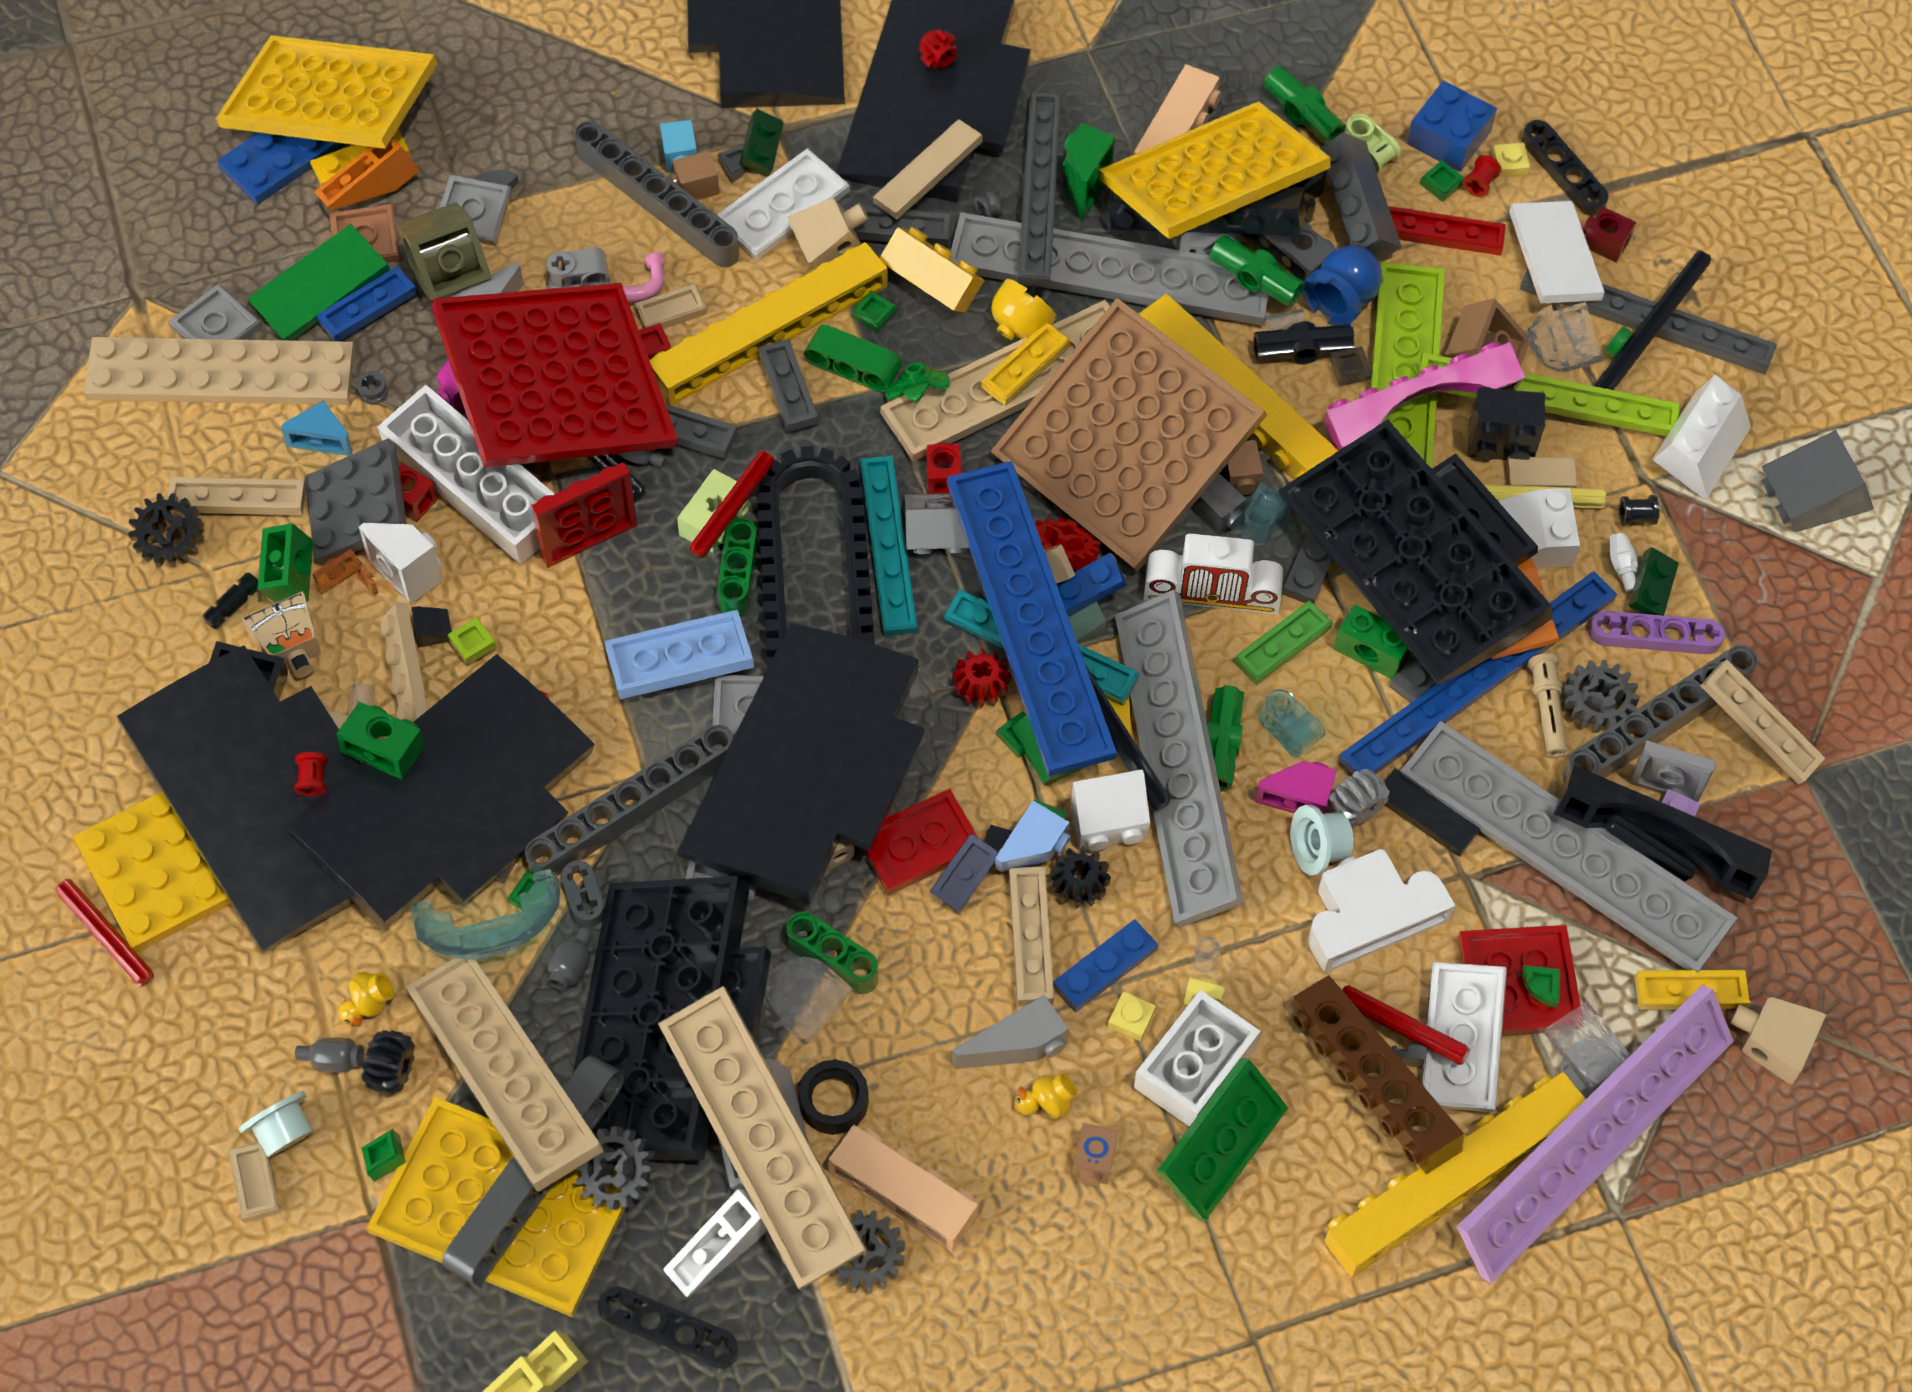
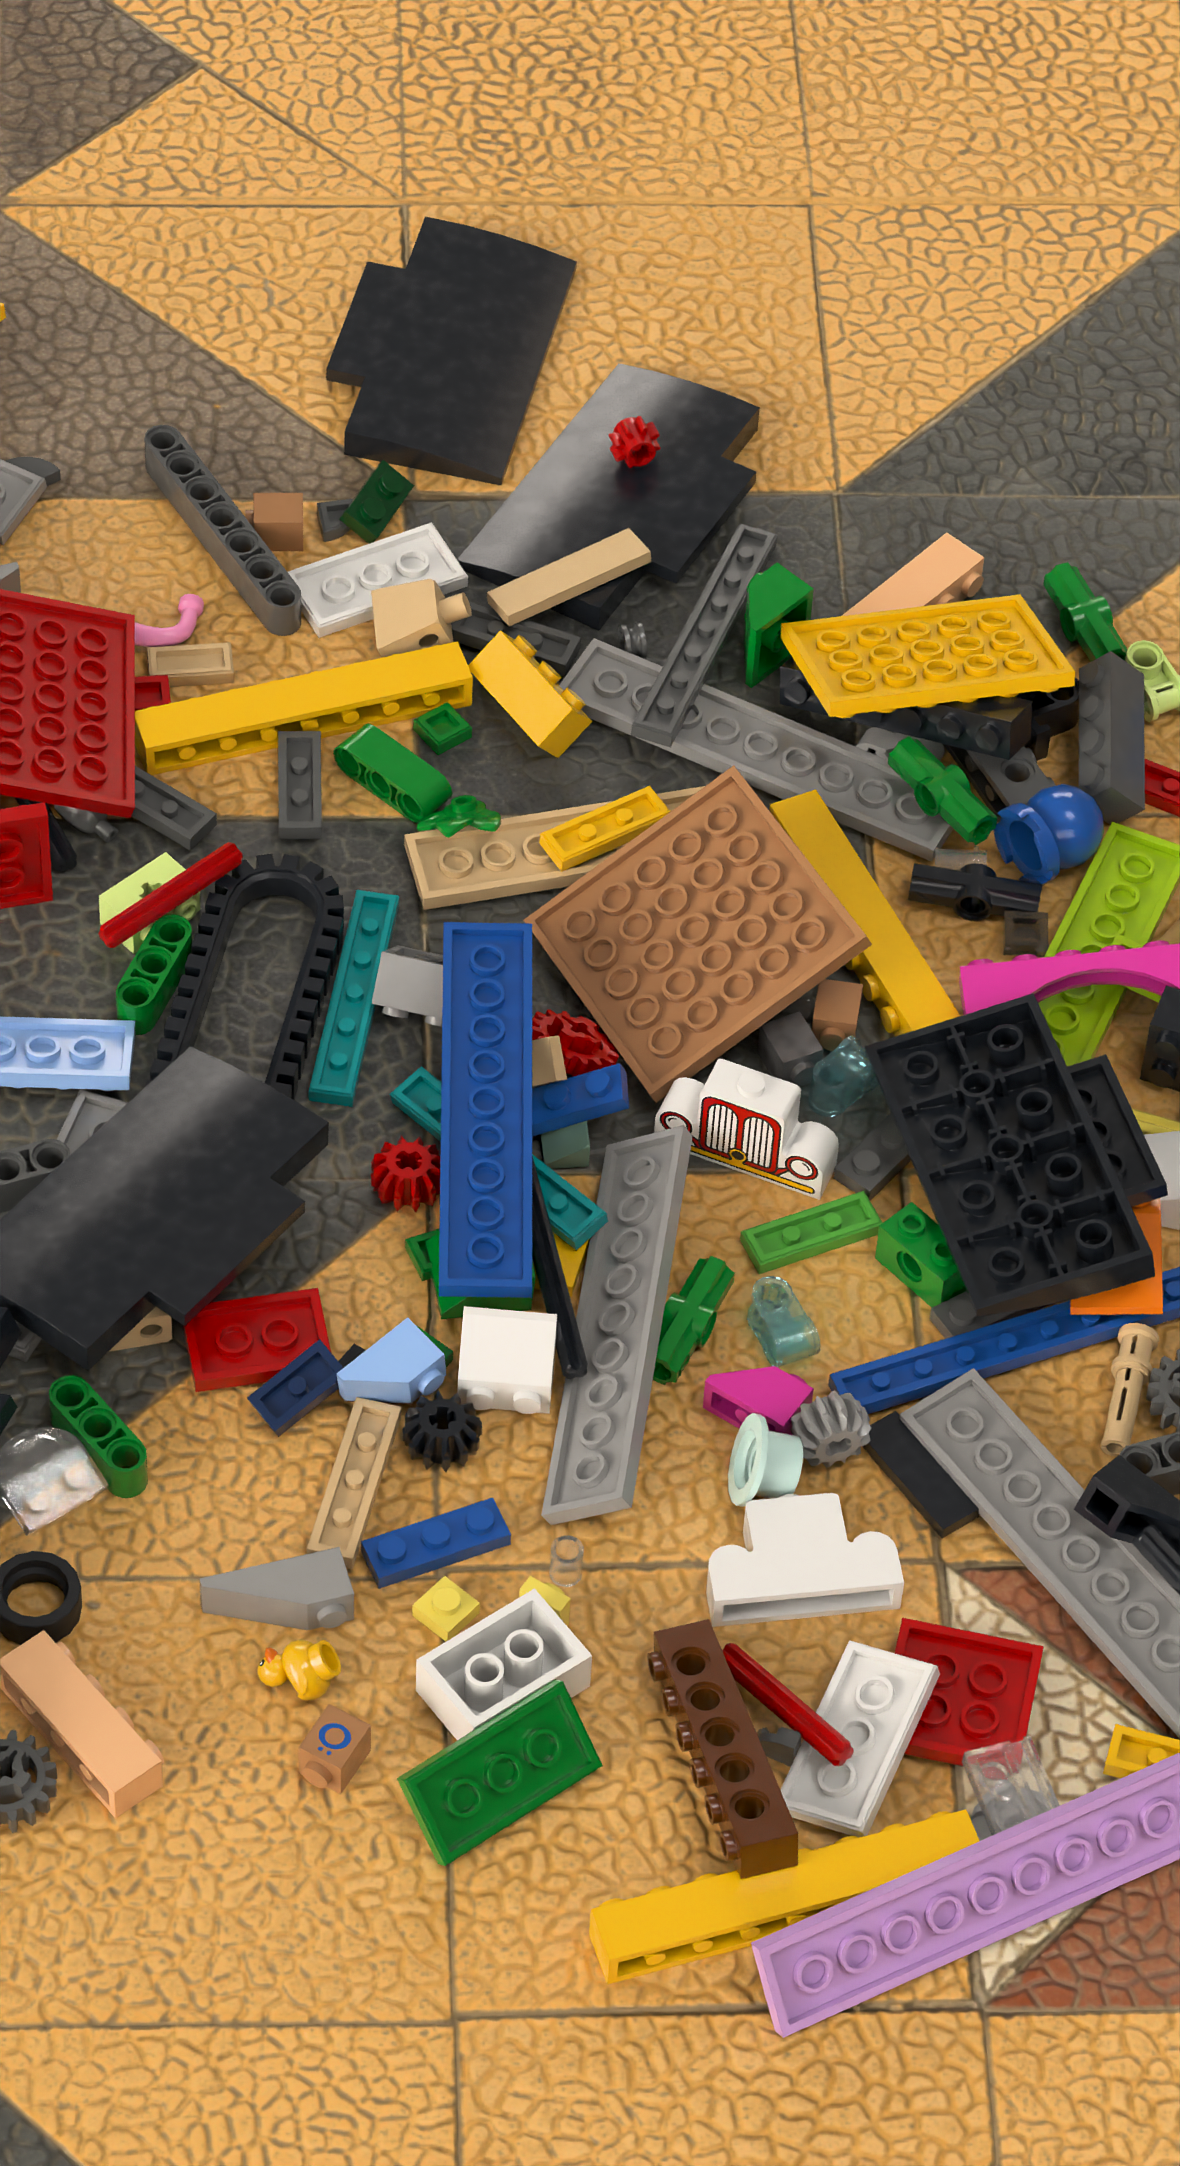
camera: 15 degrees right, 10 degrees down
(578, 268) = (92, 586): light grey piece -> none
(677, 141) = (270, 473): medium azure brick -> none
(942, 455) = (452, 908): red brick -> none
(1019, 312) = (620, 766): yellow cylinder -> none
(1542, 984) = (983, 1704): green tile -> none

